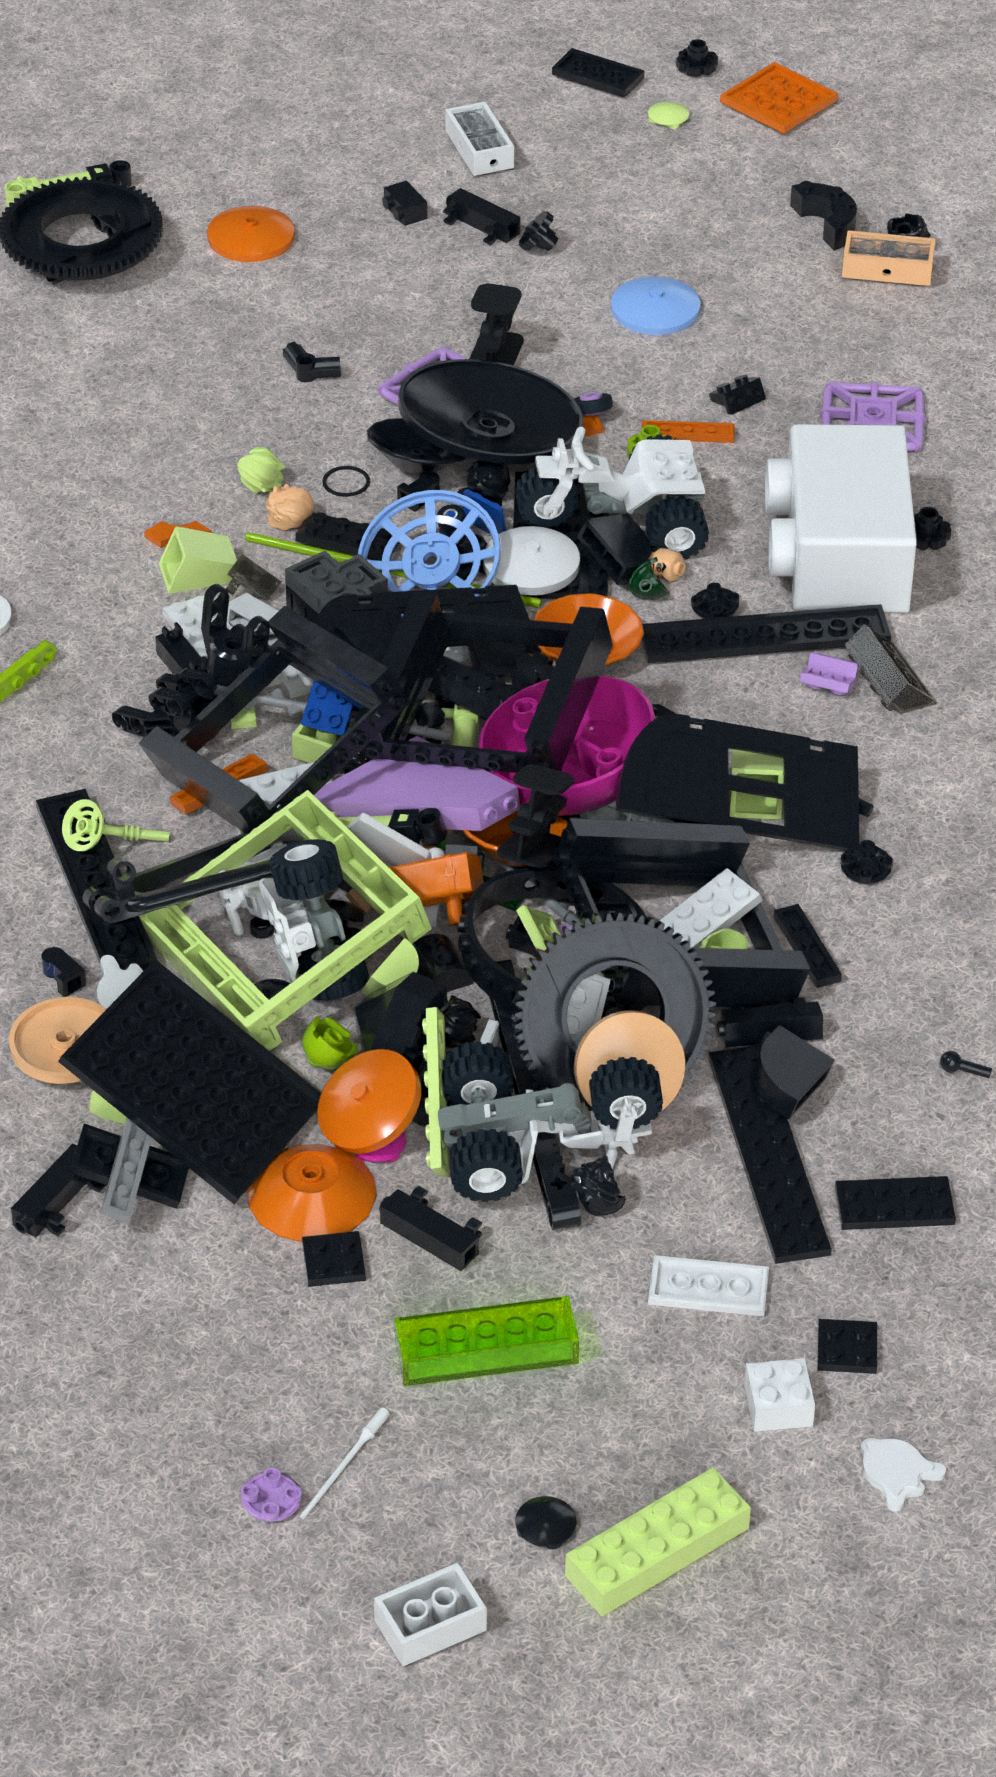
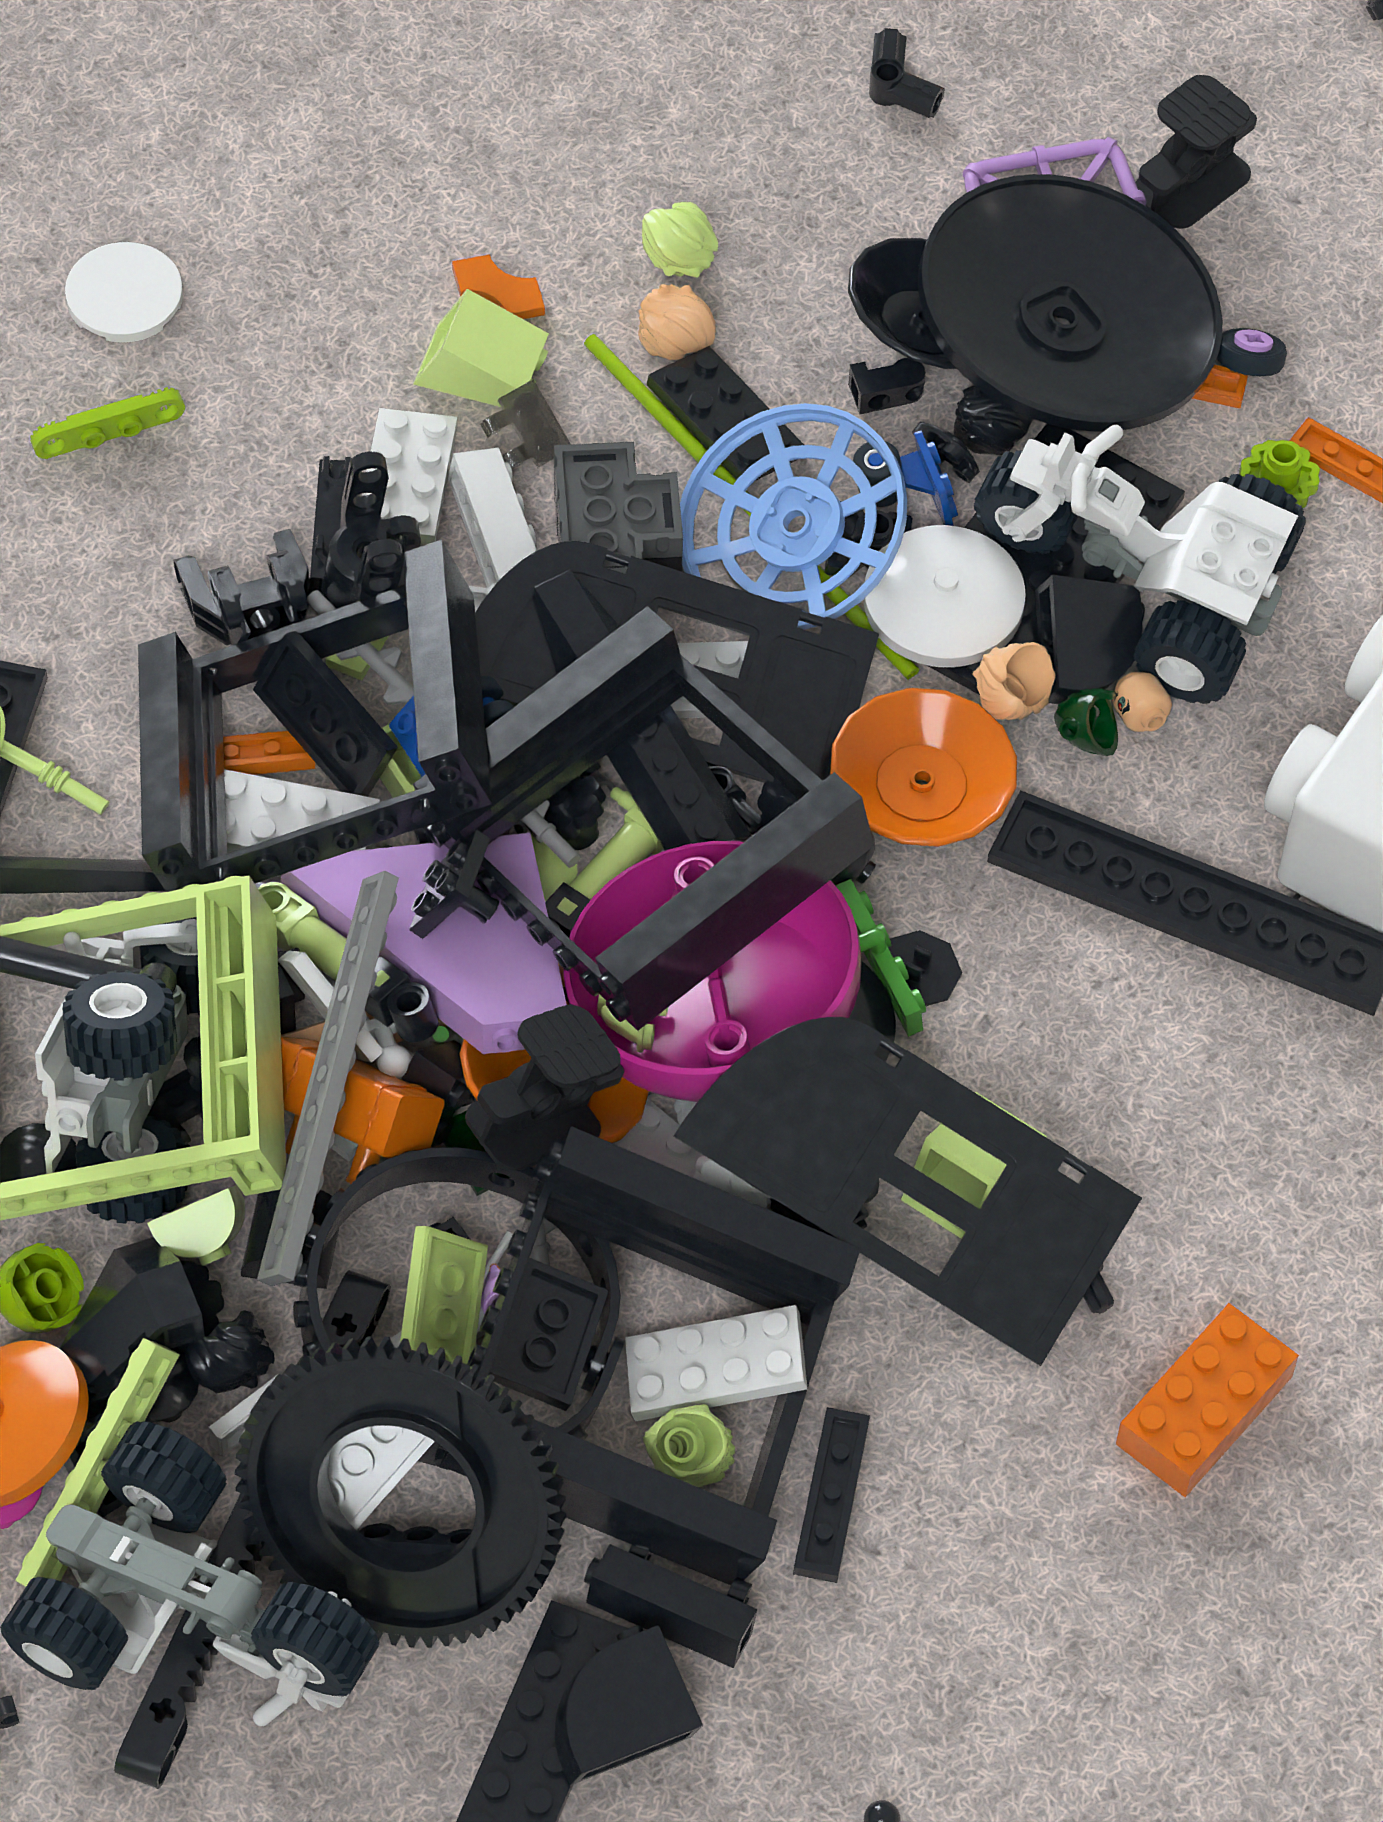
camera: 30 degrees right, 15 degrees up
(263, 734) = (324, 716): none -> black plate
(346, 468) = (802, 339): black piece -> none
(410, 758) = (452, 885): none -> black plate
(420, 865) = (327, 1081): none -> light grey plate
(597, 1187) = (212, 1747): black hair -> none
(602, 573) = (1015, 680): none -> light nougat hair
(628, 1036) = (397, 1571): light nougat dish -> none
(715, 602) = (1165, 806): black dish -> none
(830, 673) = (1230, 1029): lavender bracket -> none
(866, 863) = (1029, 1396): black dish -> none
(888, 671) = (1326, 1072): clear smoke slope -> none
(953, 823) = (1206, 1399): none -> orange brick

